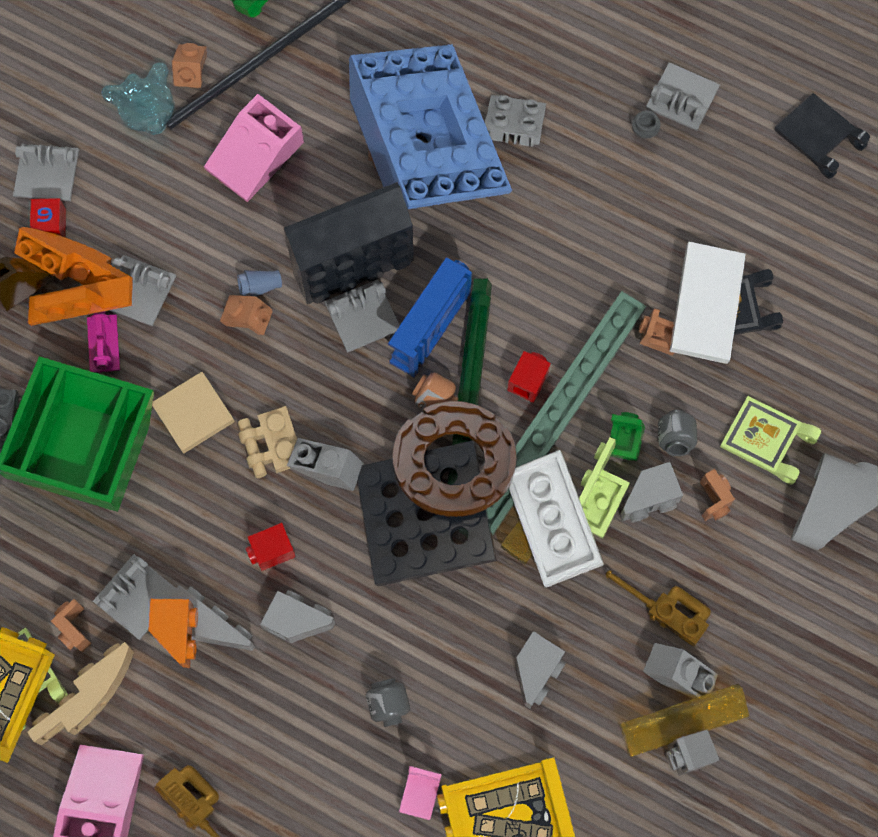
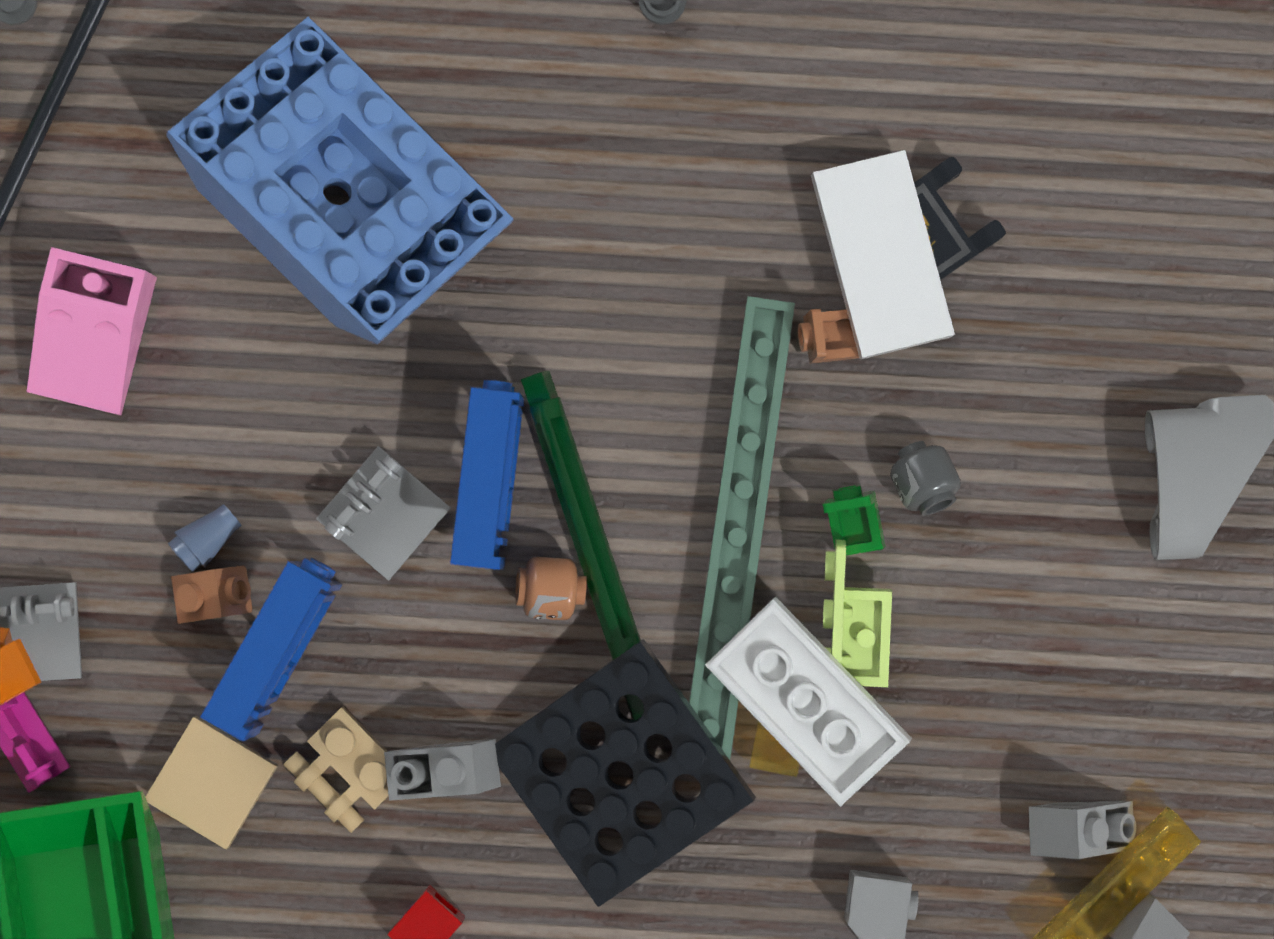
camera: 25 degrees left, 15 degrees up
(266, 350) = (272, 648): none -> blue door
(351, 243) = (318, 437): black slope -> none
(448, 419) = (619, 615): reddish brown plate -> none
(515, 117) = (459, 86): light grey hinge -> none
(529, 375) = (672, 492): red brick -> none
(653, 491) = (926, 585): light grey slope -> none
(668, 616) = (1019, 748): pearl gold piece -> none
(719, 492) = (1019, 534): nougat bracket -> none
(765, 435) = (1050, 419): yellowish green flag -> none

